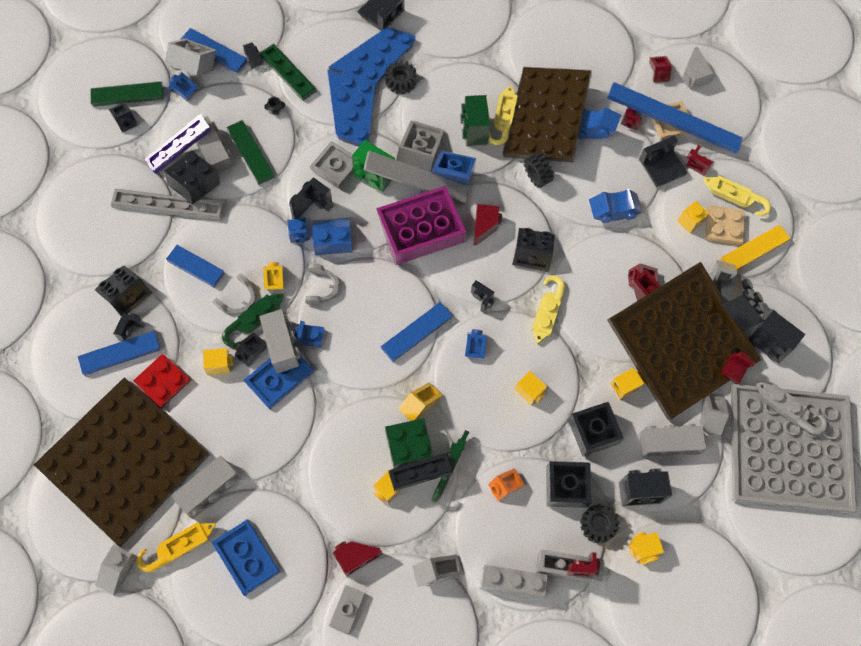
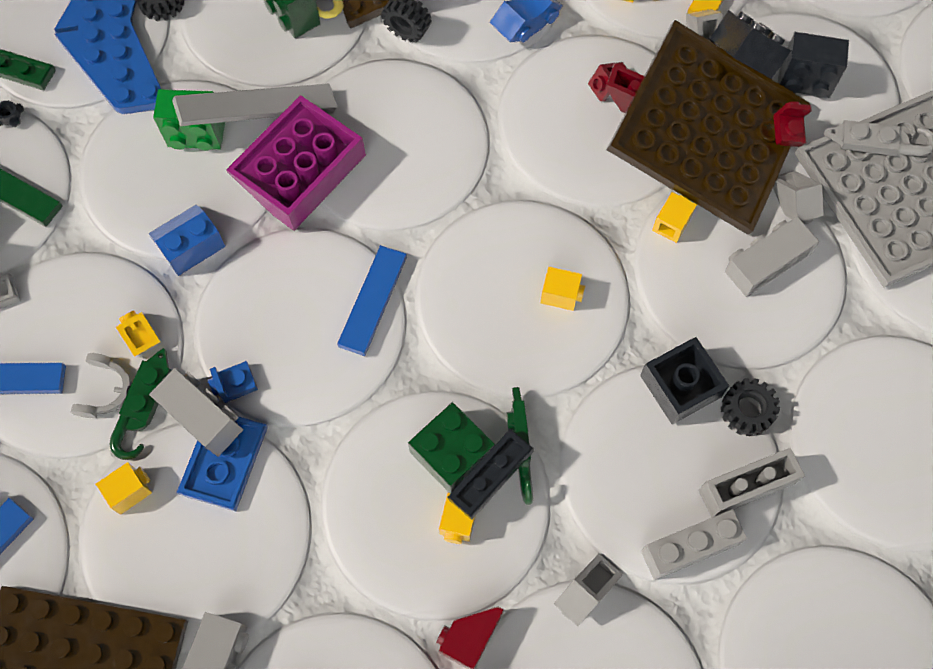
camera: 25 degrees left, 0 degrees up
(162, 380) = (60, 559): red plate -> none
(250, 348) = (161, 445): black bracket -> none
(297, 230) = (135, 256): blue bracket -> none
(311, 192) = (125, 196): black bracket -> none
(319, 269) = (215, 331): light grey piece -> none
(333, 164) = (134, 147): light grey plate -> none
(420, 145) = (235, 64): light grey slope -> none
(420, 401) = (432, 385): yellow slope -> none
(455, 167) = (299, 67): blue slope -> none
(475, 344) = (458, 272): blue bracket -> none
(483, 293) = (429, 204): black bracket -> none
(486, 222) = (378, 115): dark red slope -> none
(506, 484) = (605, 427): orange bracket -> none
(534, 249) = (459, 118): black bracket -> none
(548, 310) = (522, 183): light yellow plate -> none
(580, 568) = (778, 471): dark red bracket -> none
(595, 428) = (673, 292): black brick -> none
(645, 487) = (779, 329): black brick -> none
(645, 547) = (824, 403): yellow brick -> none

